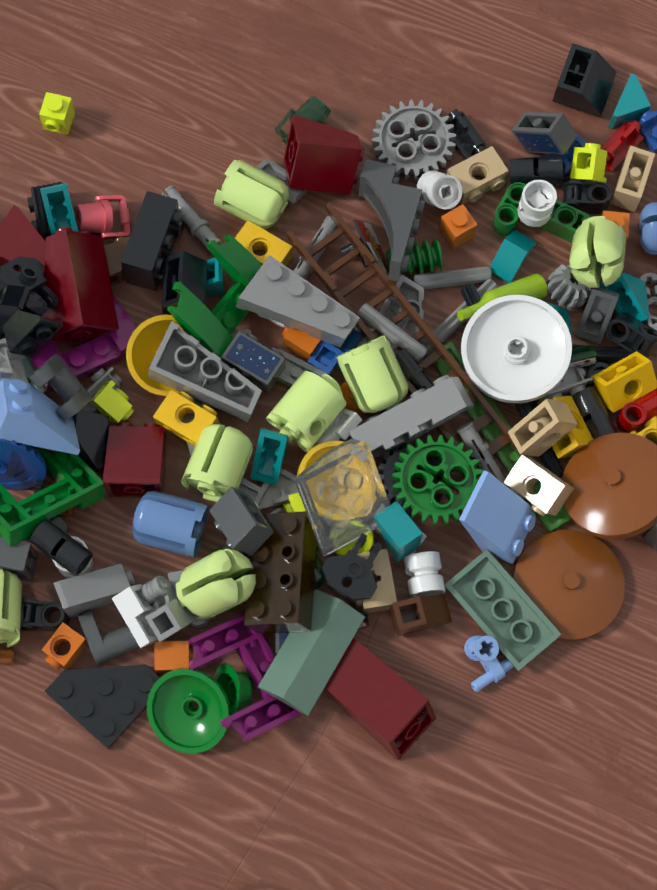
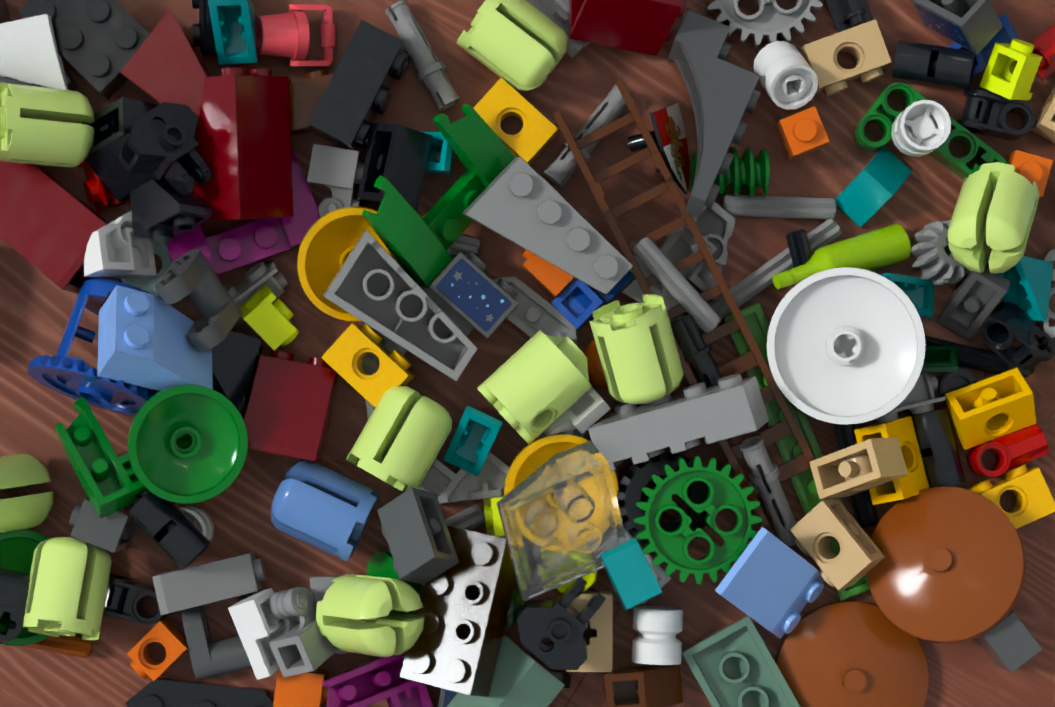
camera: 15 degrees right, 15 degrees up
(82, 470) = (209, 459): none -> green dish
(143, 300) = (338, 171): none -> light grey brick

